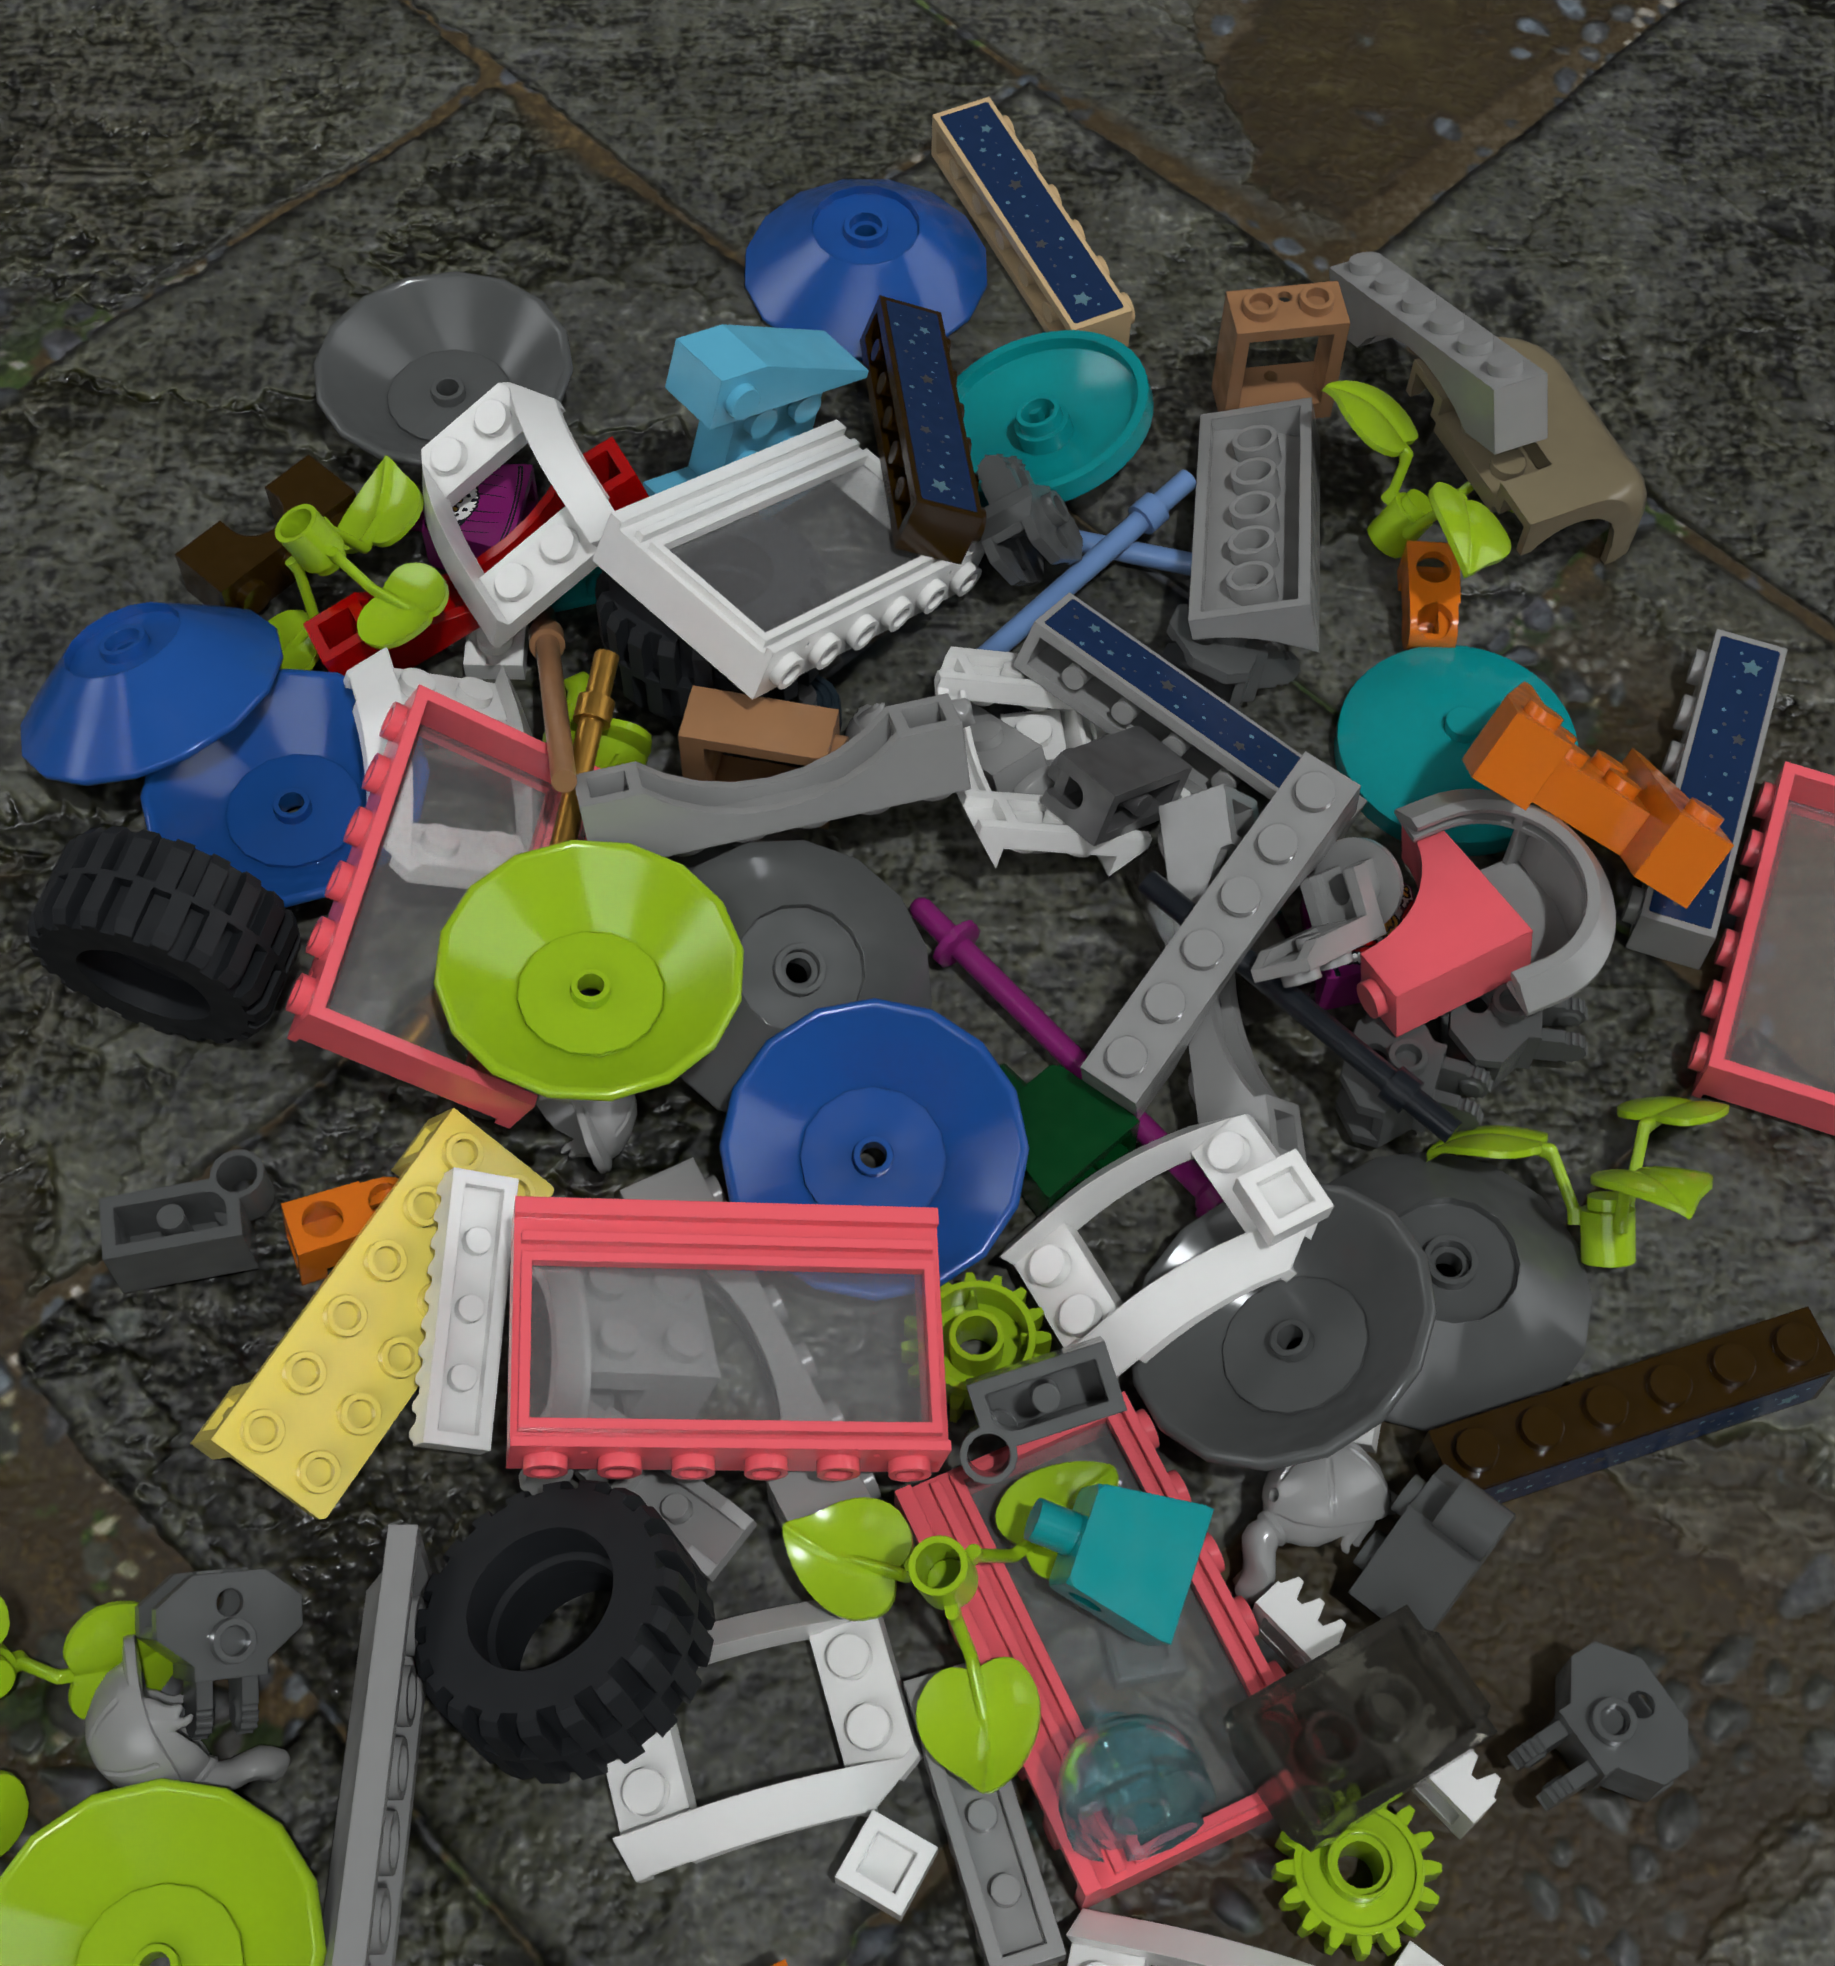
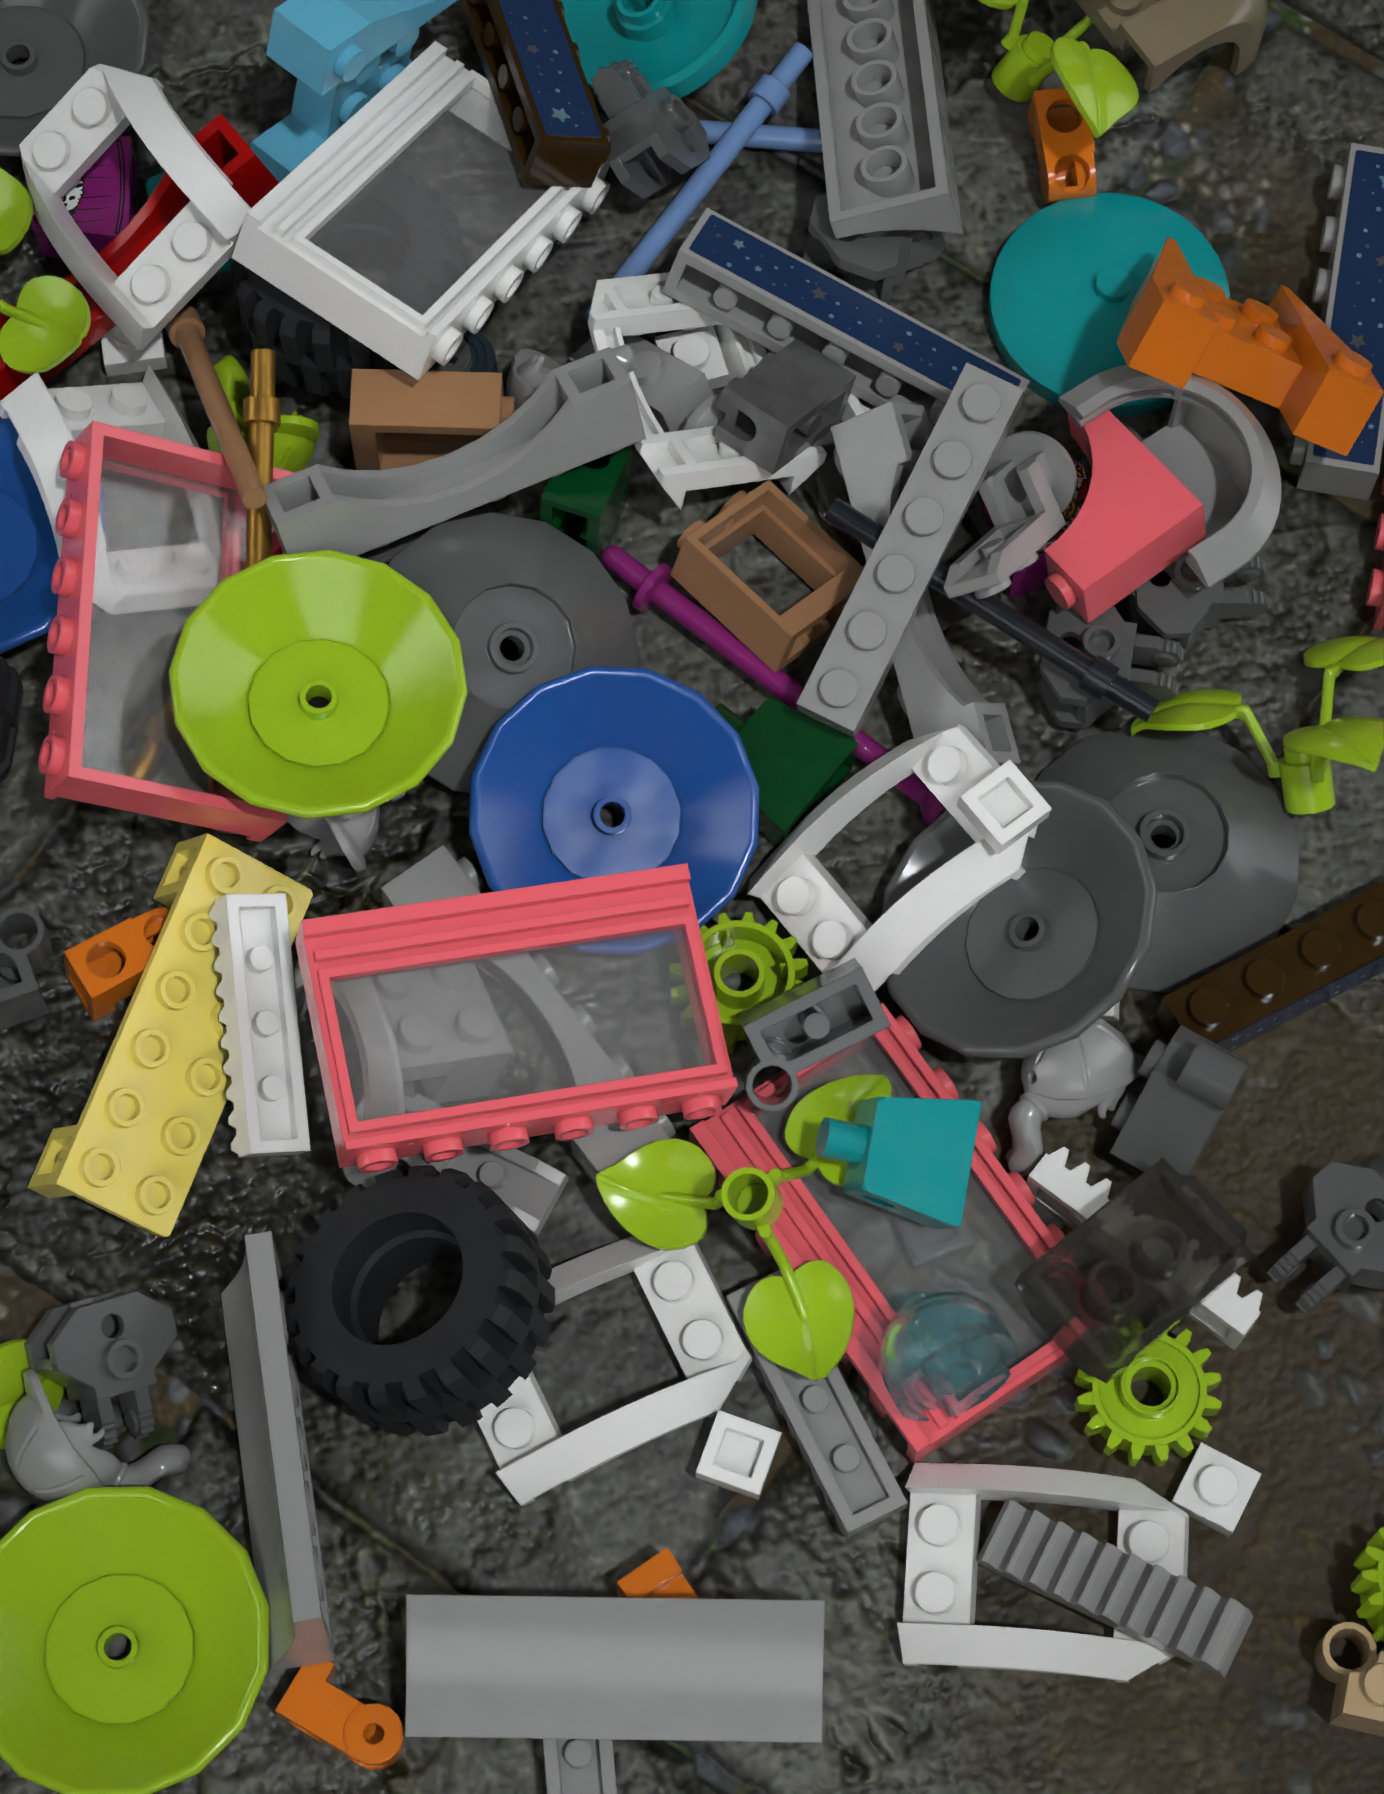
camera: 10 degrees left, 10 degrees up
(914, 834) = (591, 491): none -> dark green torso
(1102, 912) = (797, 543): none -> medium nougat window

